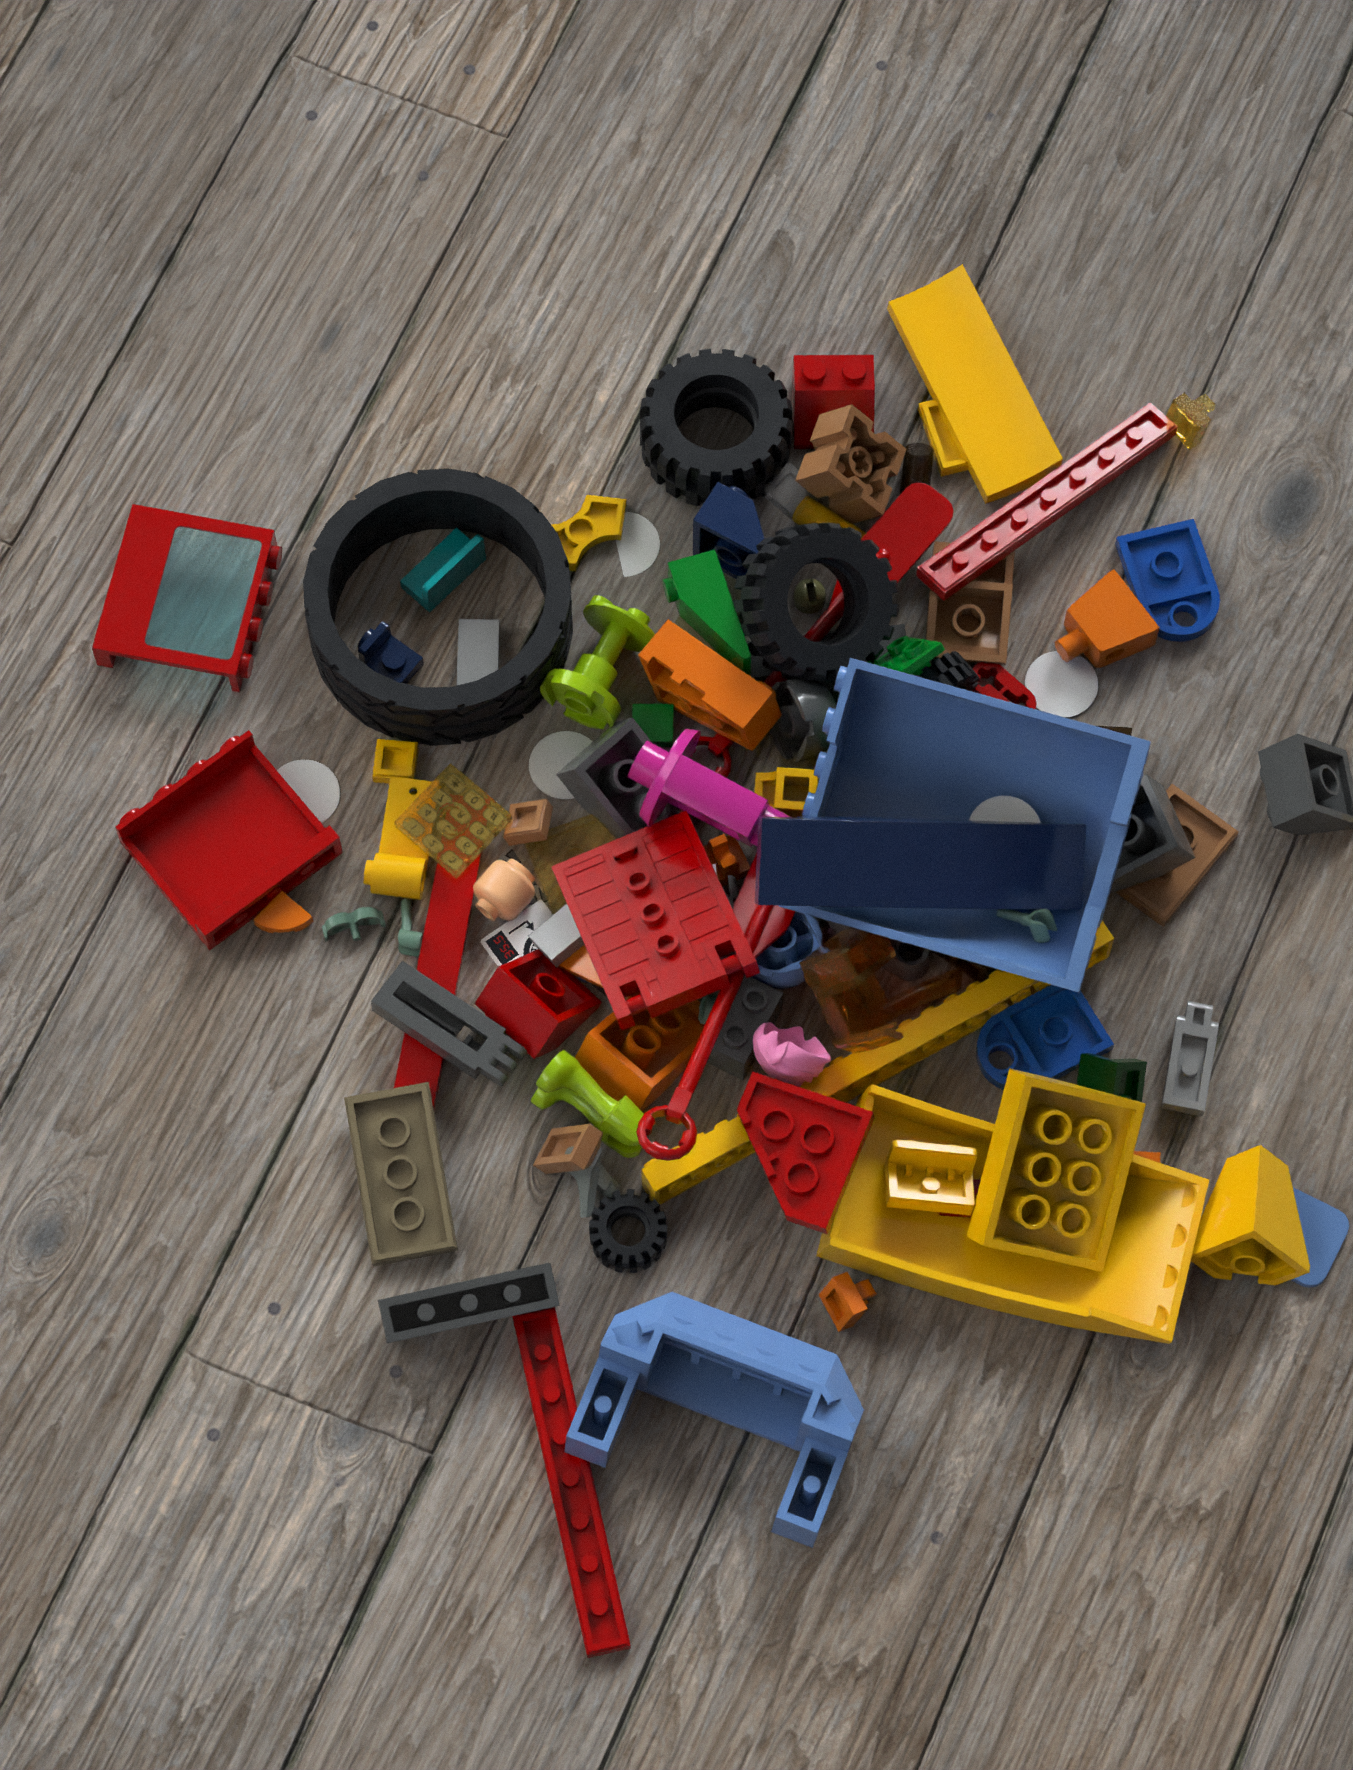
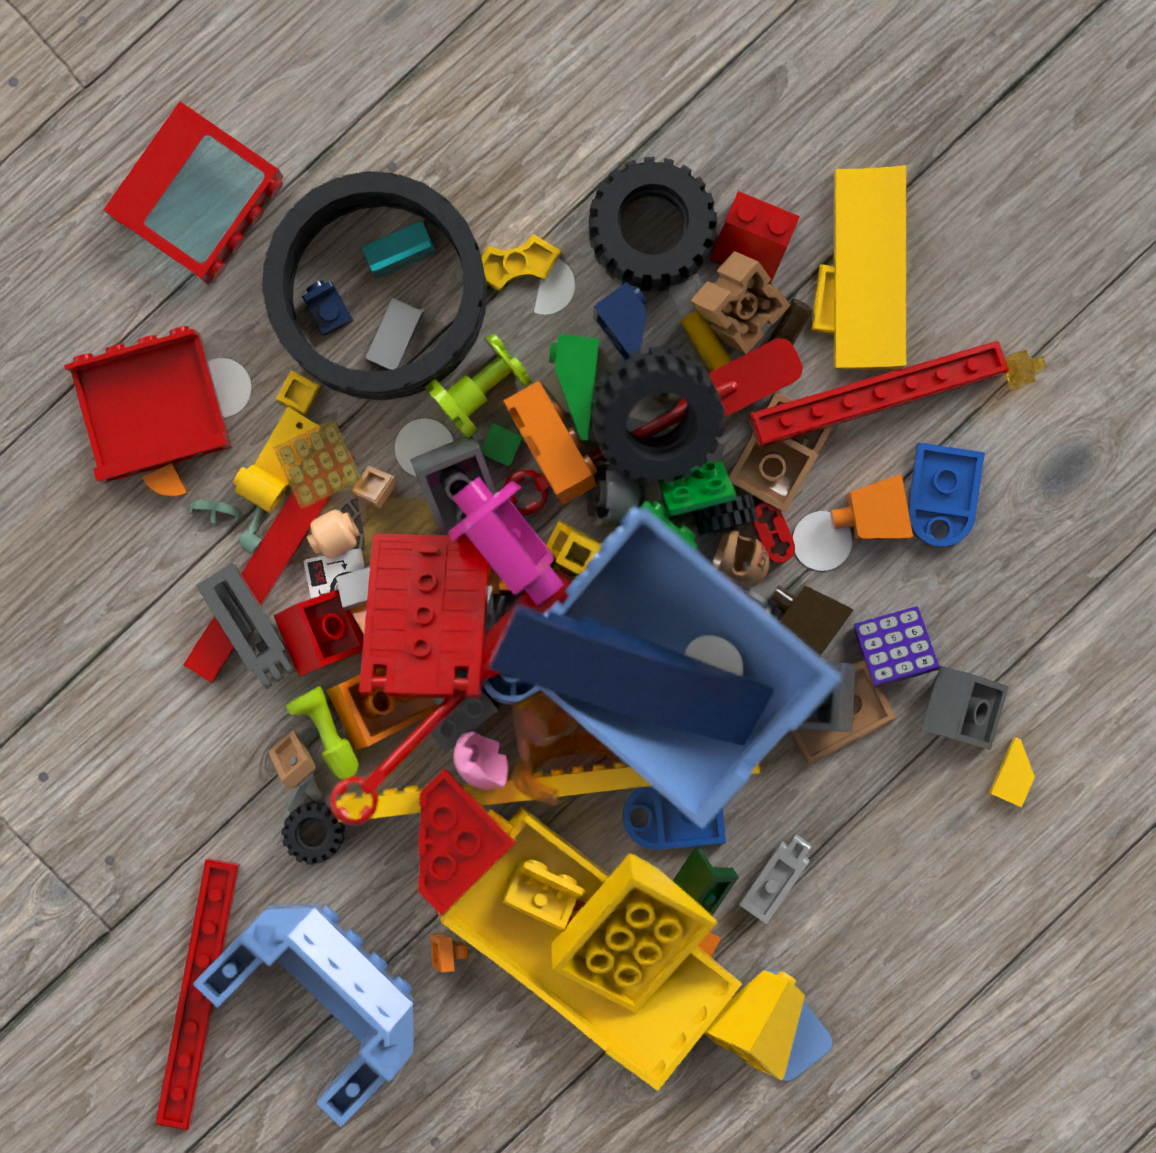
camera: 20 degrees right, 20 degrees up
(400, 1174) = (169, 719): dark tan tile -> none
(468, 1302) = (173, 842): dark grey brick -> none
(1039, 922) = (703, 744): sand green hand -> none
(1200, 754) = (896, 647): none -> tile

